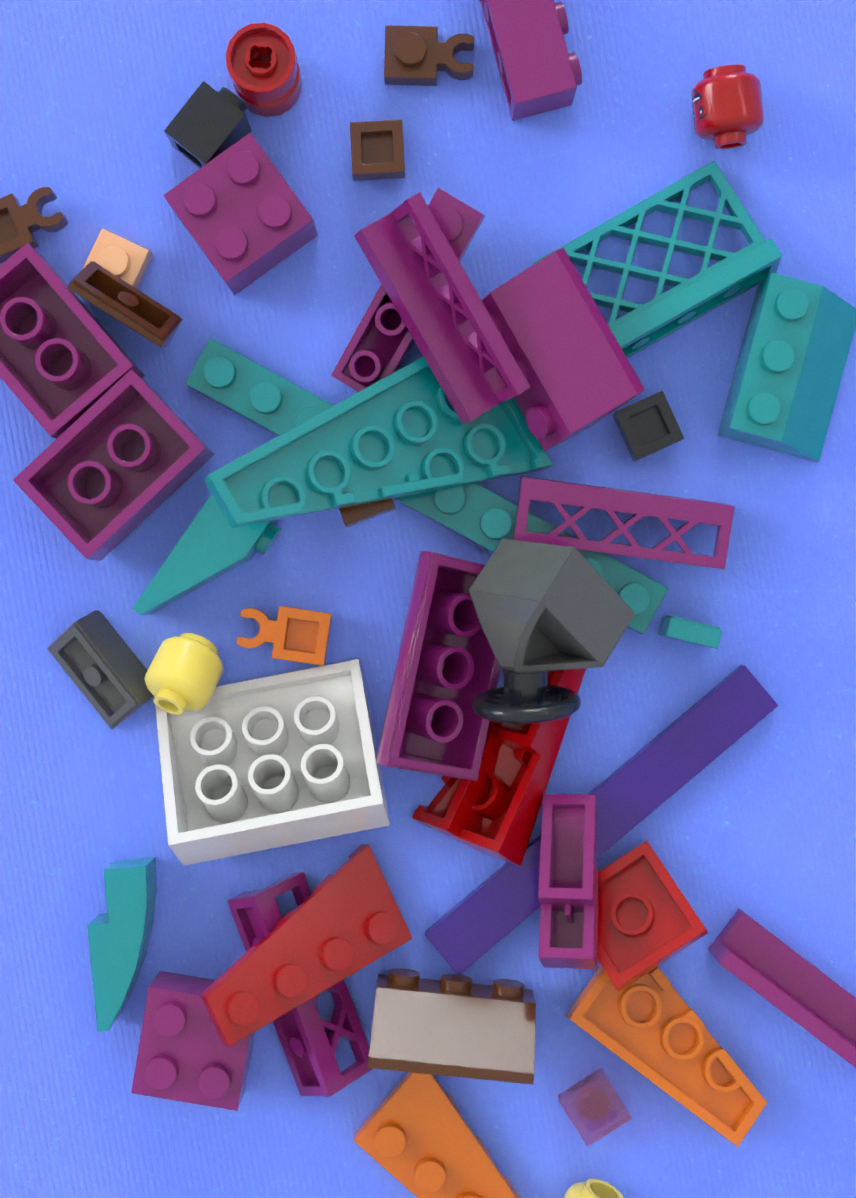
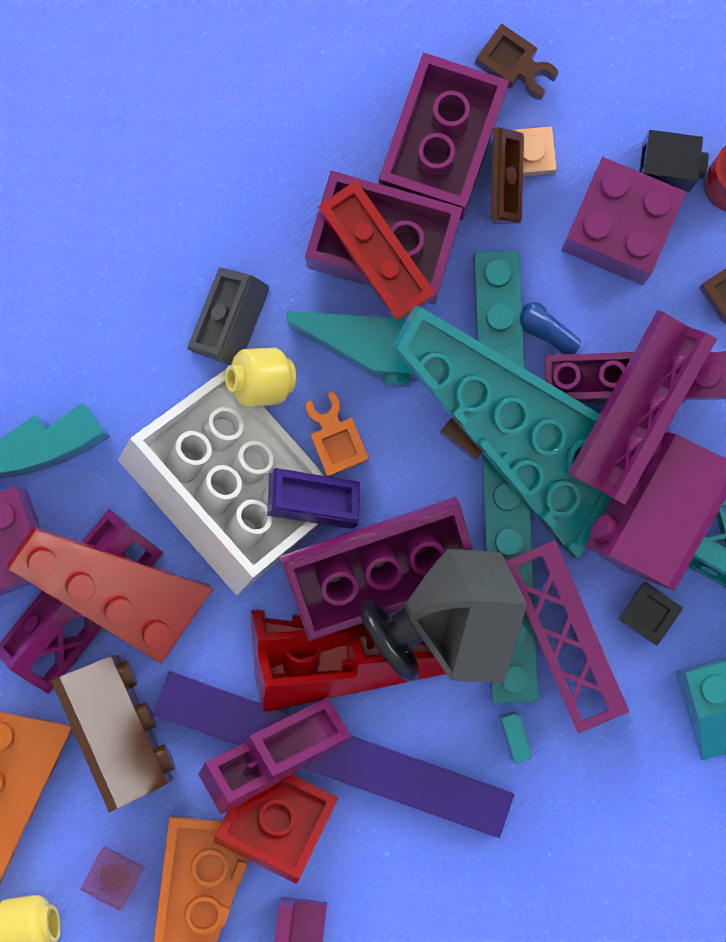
camera: 70 degrees right, 5 degrees down
(123, 483) = (376, 251): none -> red plate
(300, 359) = (544, 326): none -> blue arm
(338, 692) = (313, 498): none -> dark purple tile

